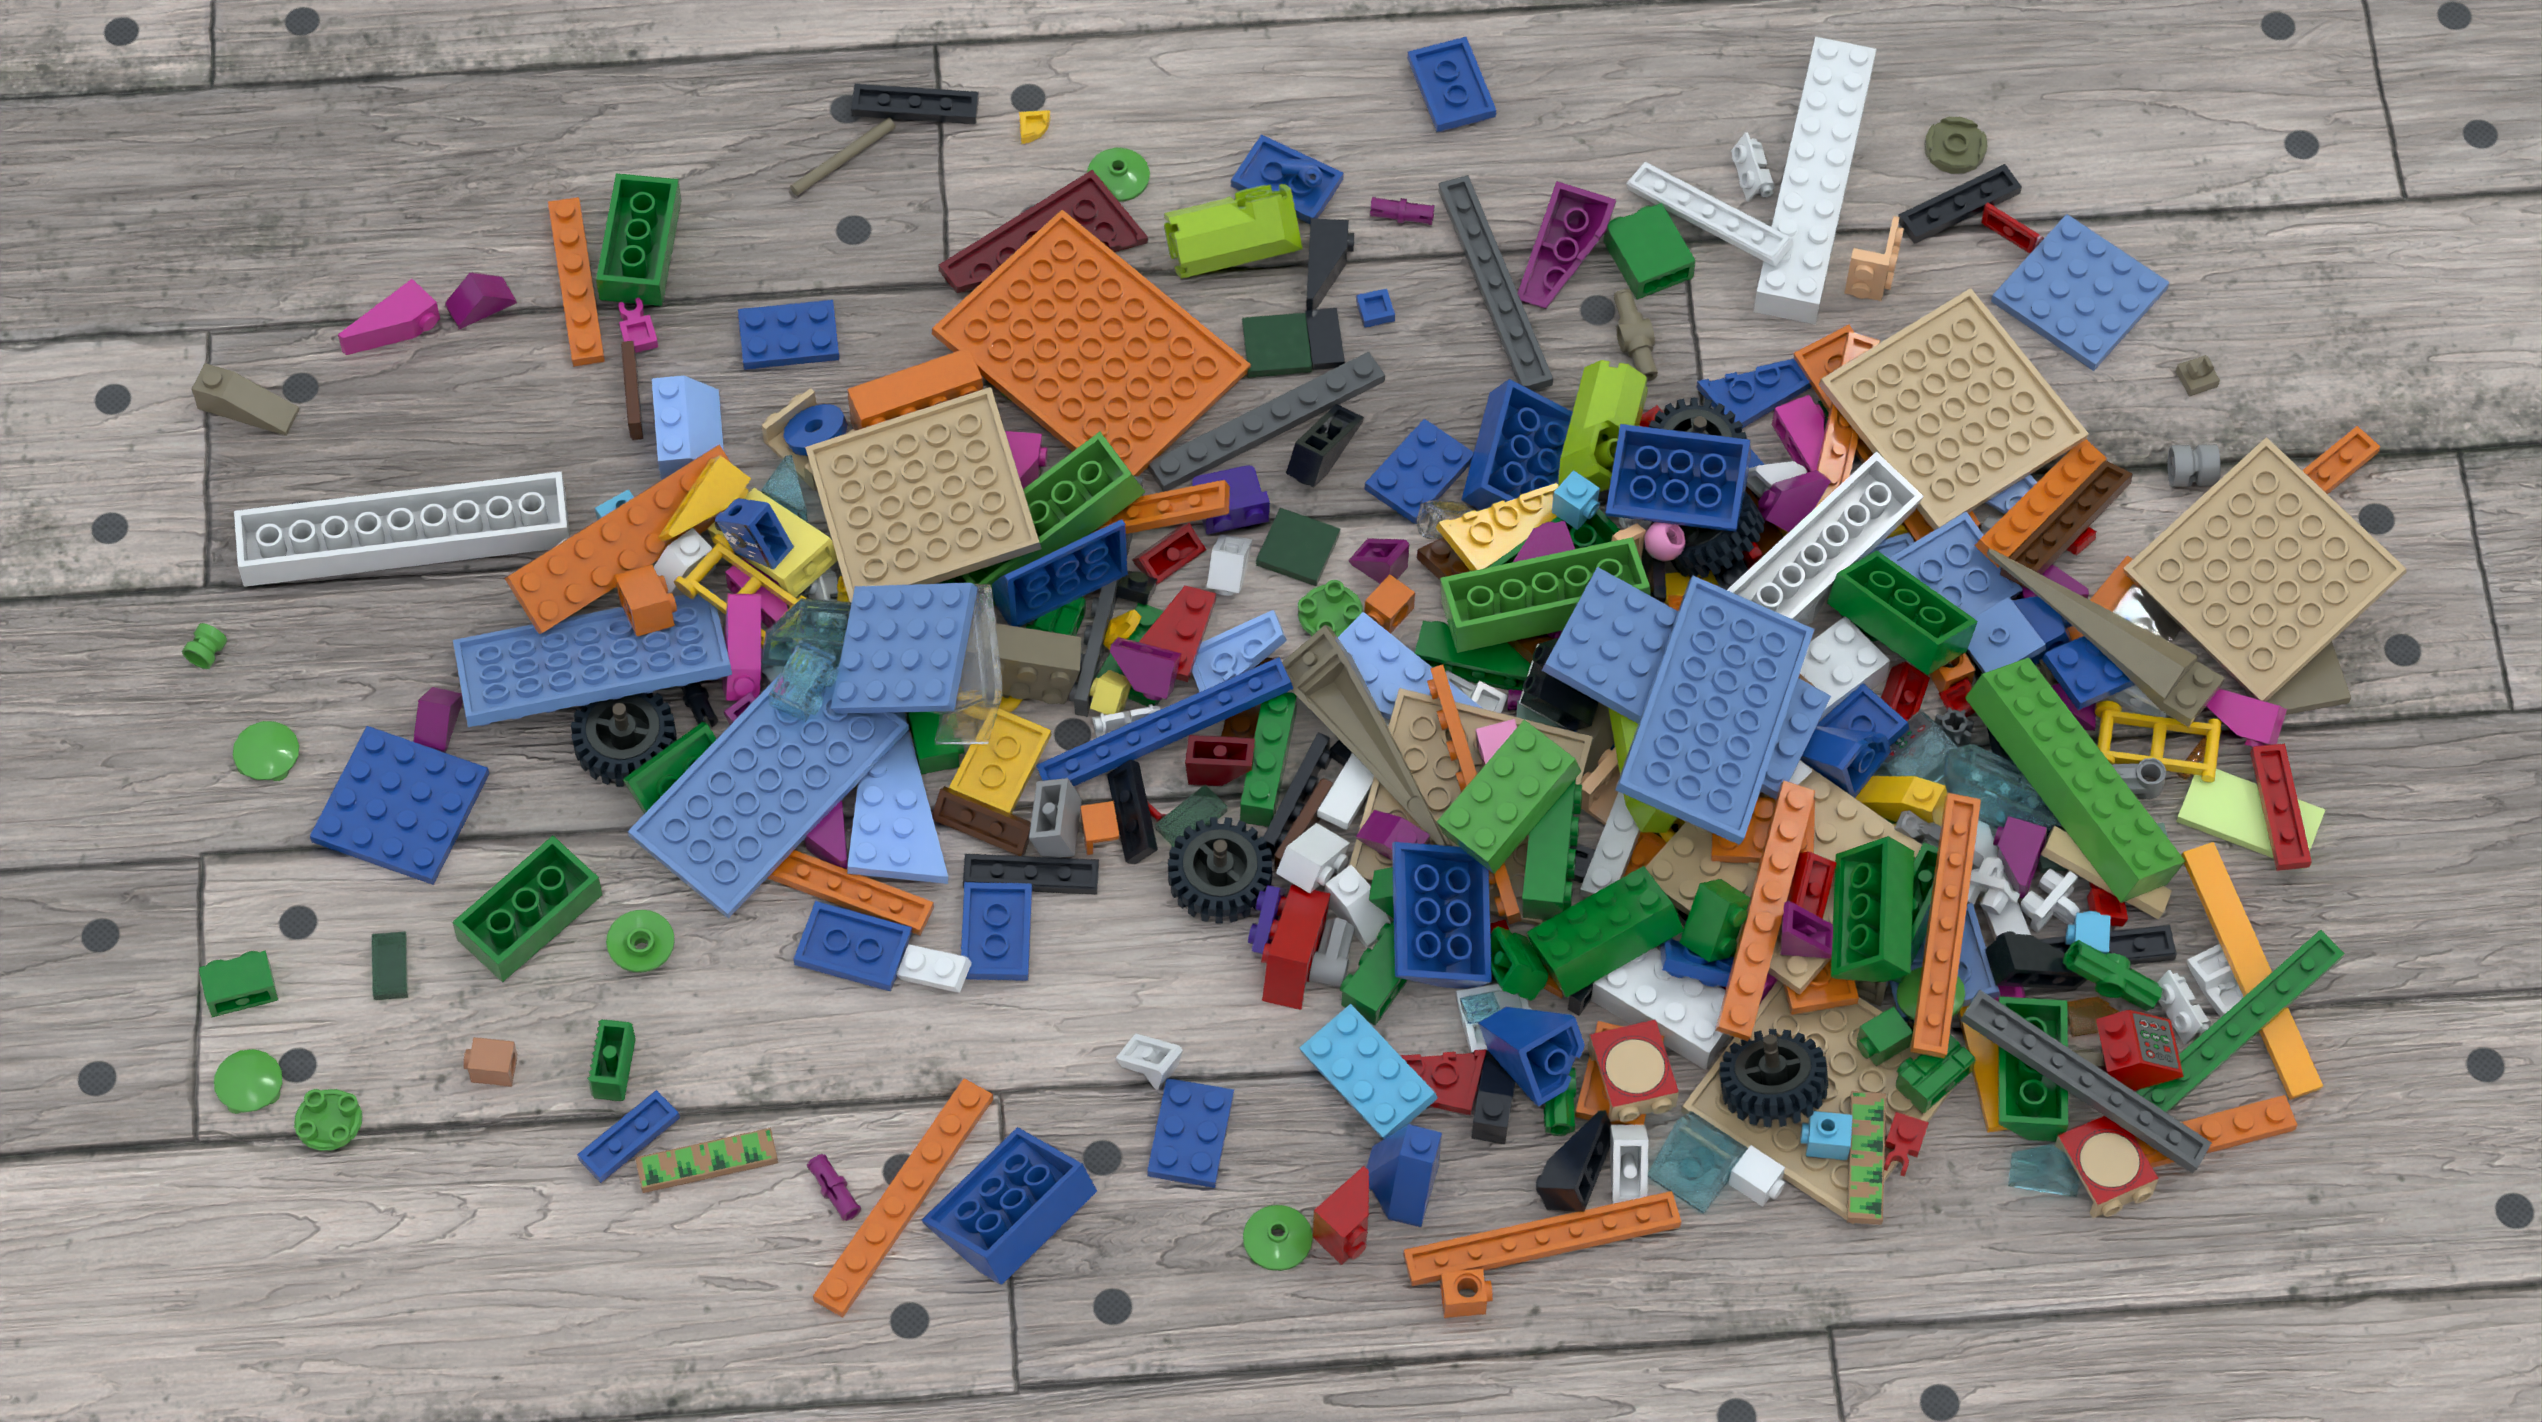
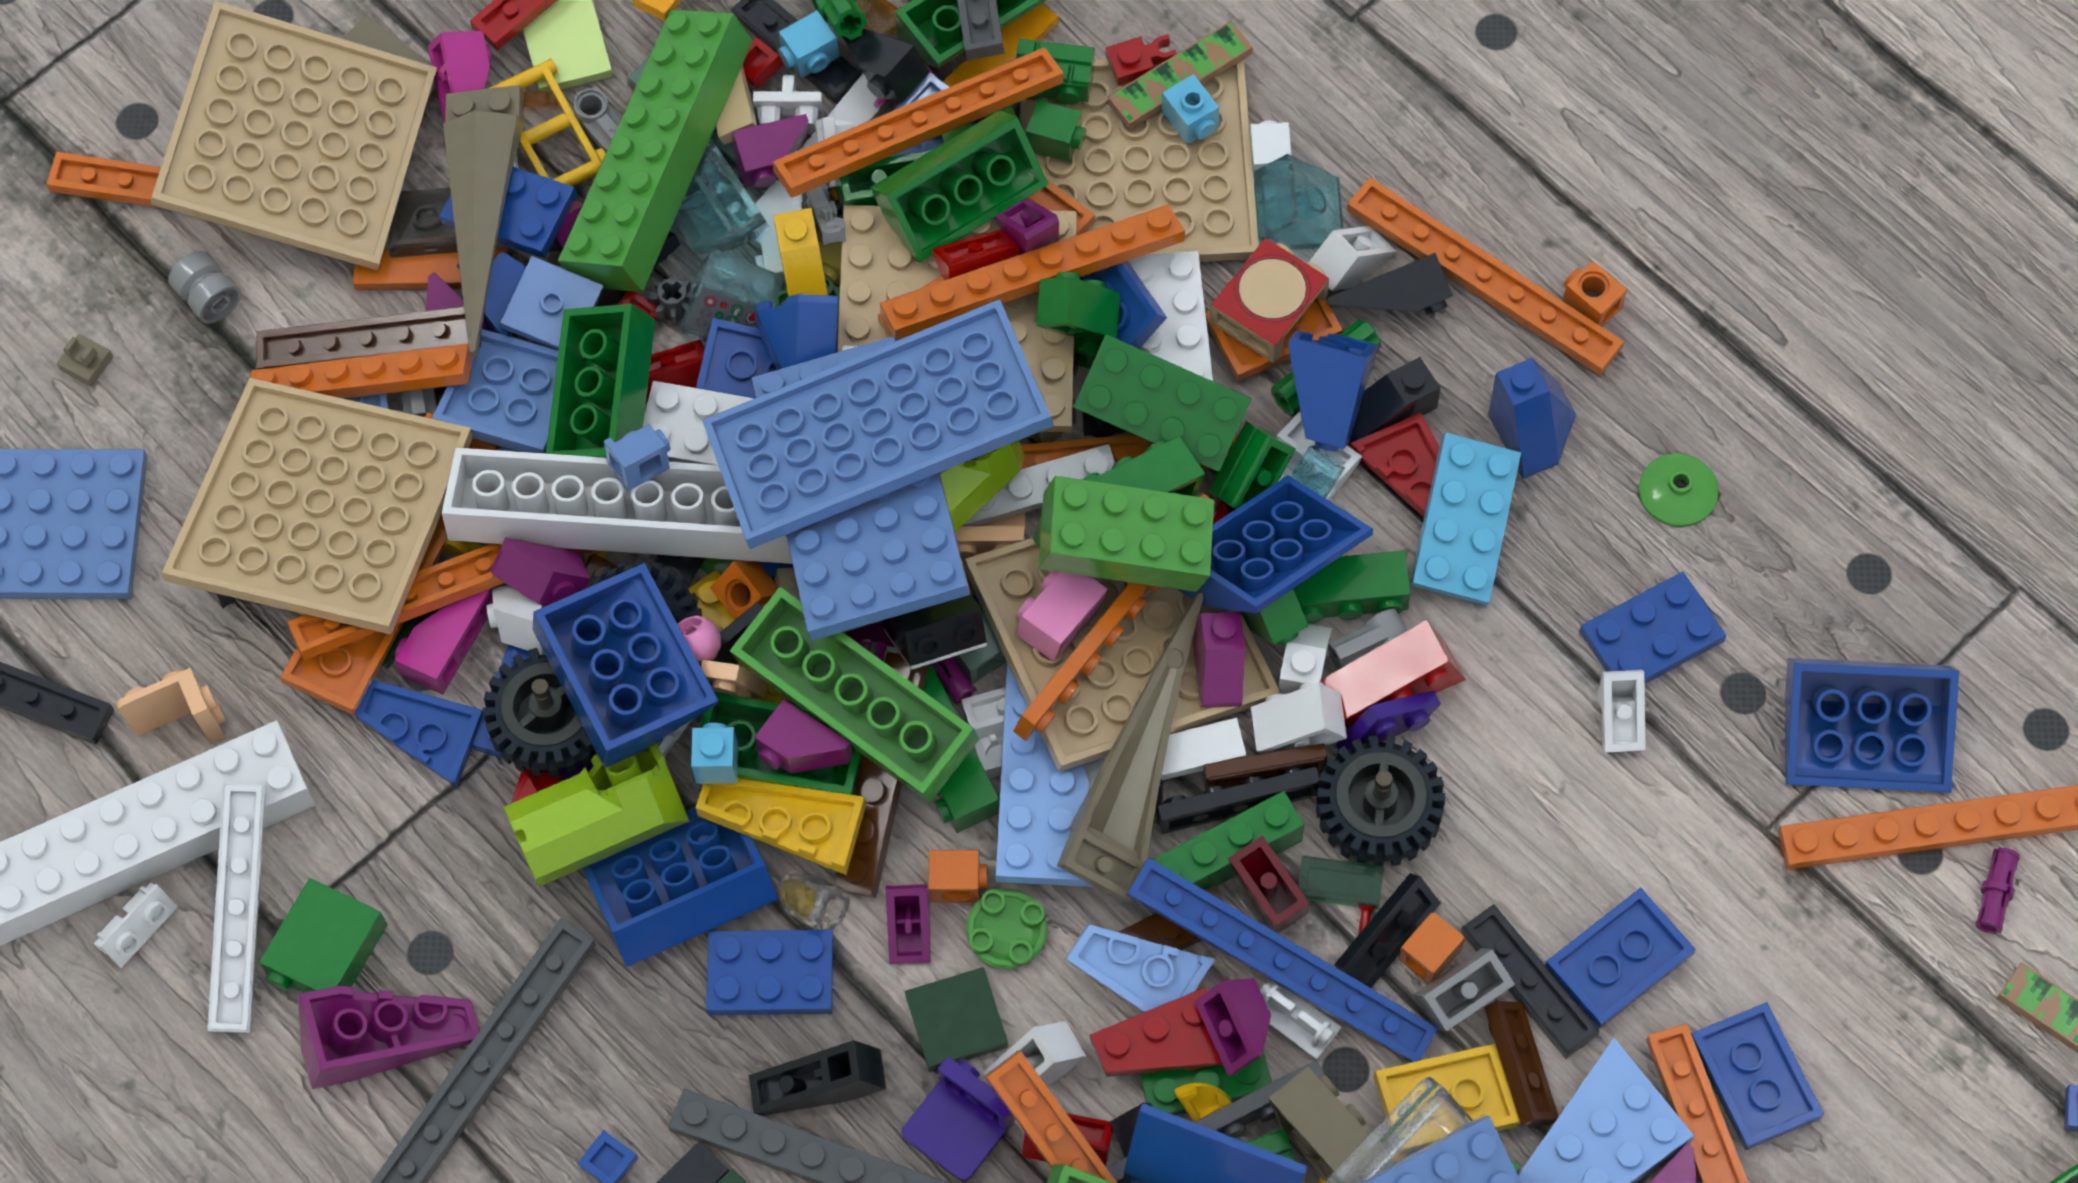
camera: 125 degrees left, 5 degrees up
(934, 968) = (1712, 978): white plate -> none
(1110, 693) = (1285, 1051): light yellow plate -> none
(1342, 1219) = (1621, 425): red slope -> none
(1635, 334) = (440, 883): dark tan pin -> none
(1774, 1078) = (1186, 166): wheel -> none
(1820, 579) = (638, 456): none -> medium blue brick
(2010, 228) = (25, 629): red slope -> none

